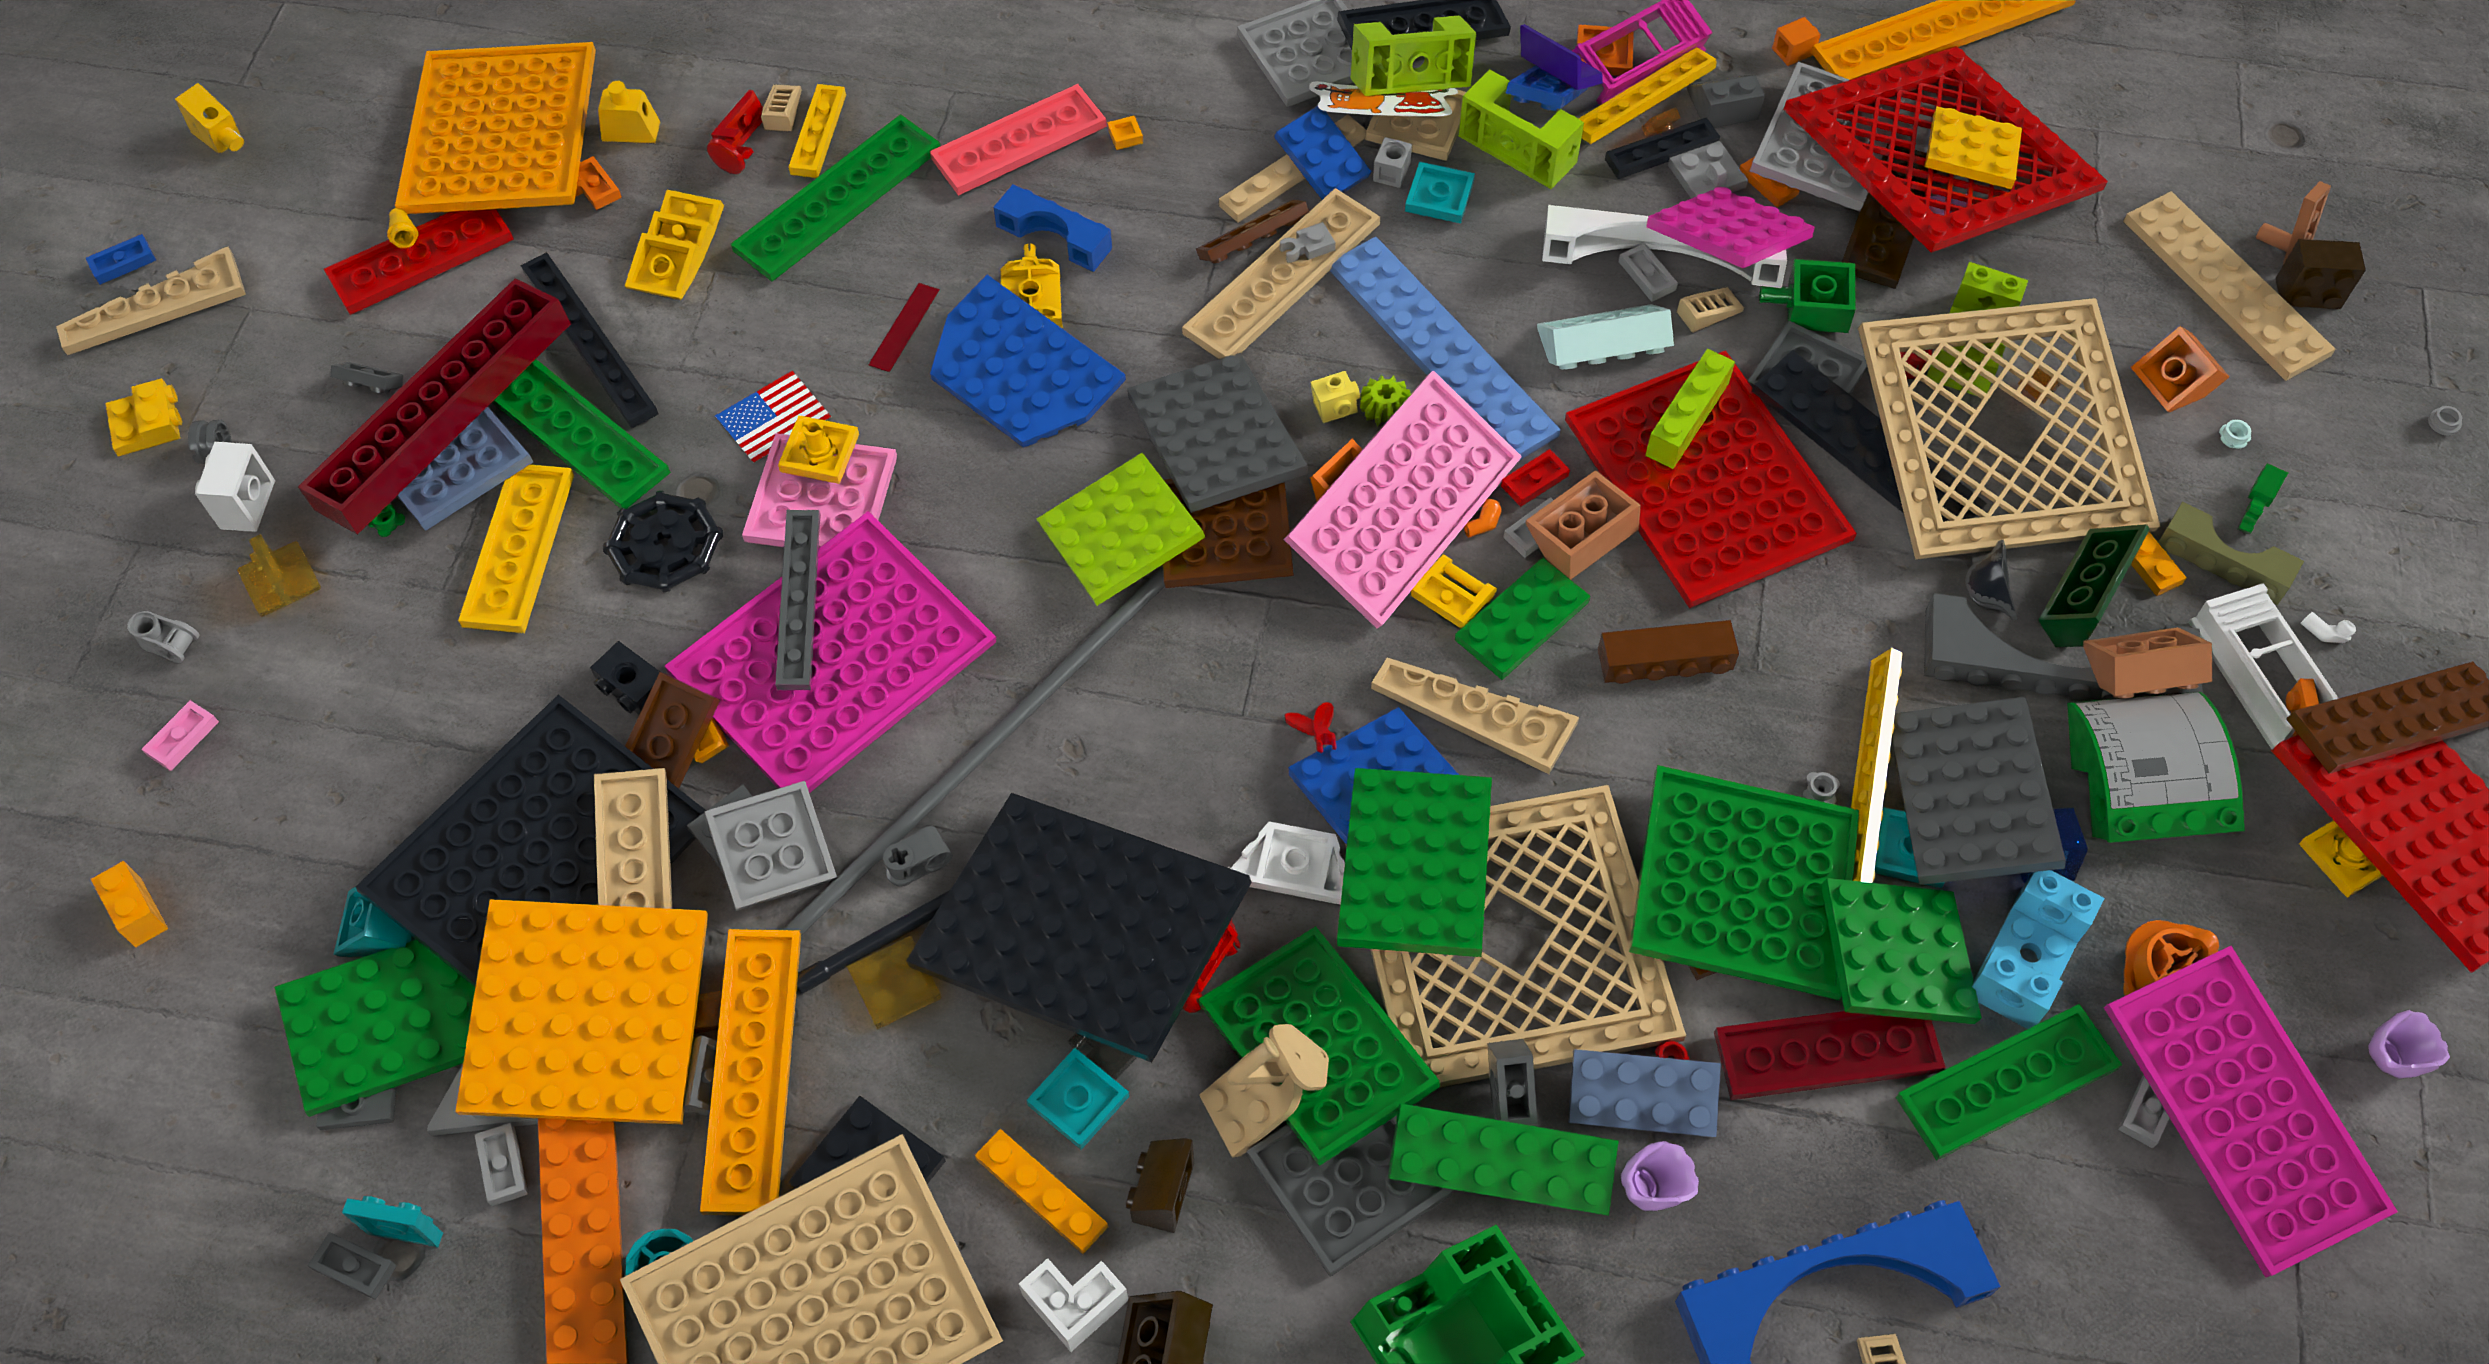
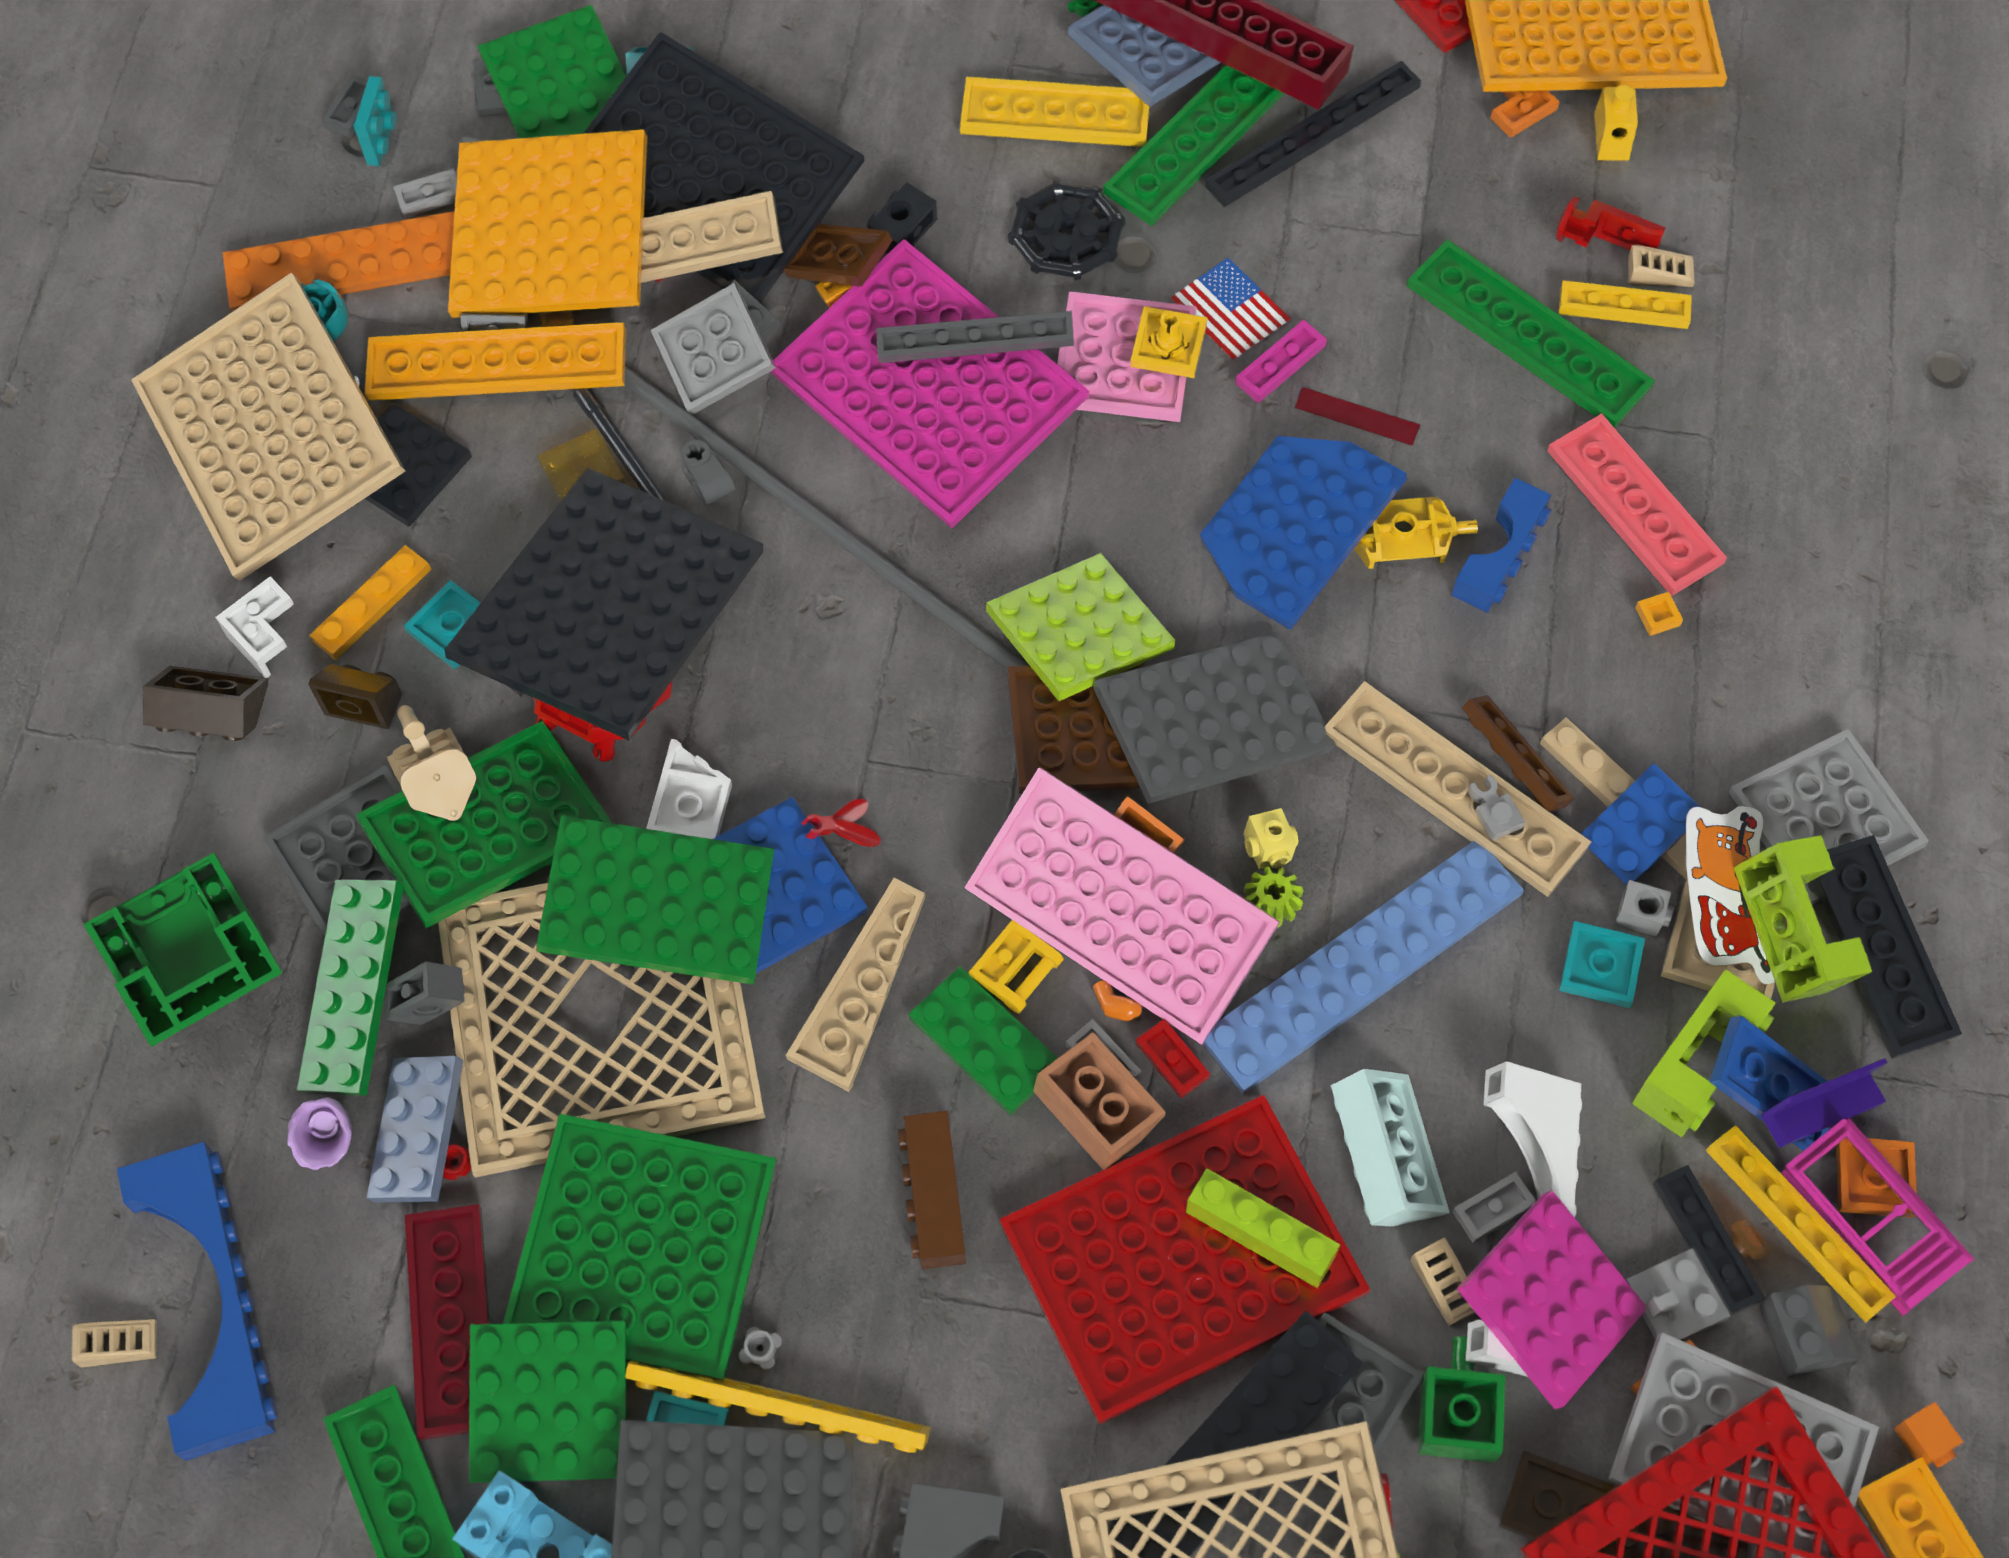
camera: 90 degrees right, 5 degrees up
(674, 245) = (1446, 192): yellow slope -> none
(843, 374) = (1280, 361): none -> dark pink plate

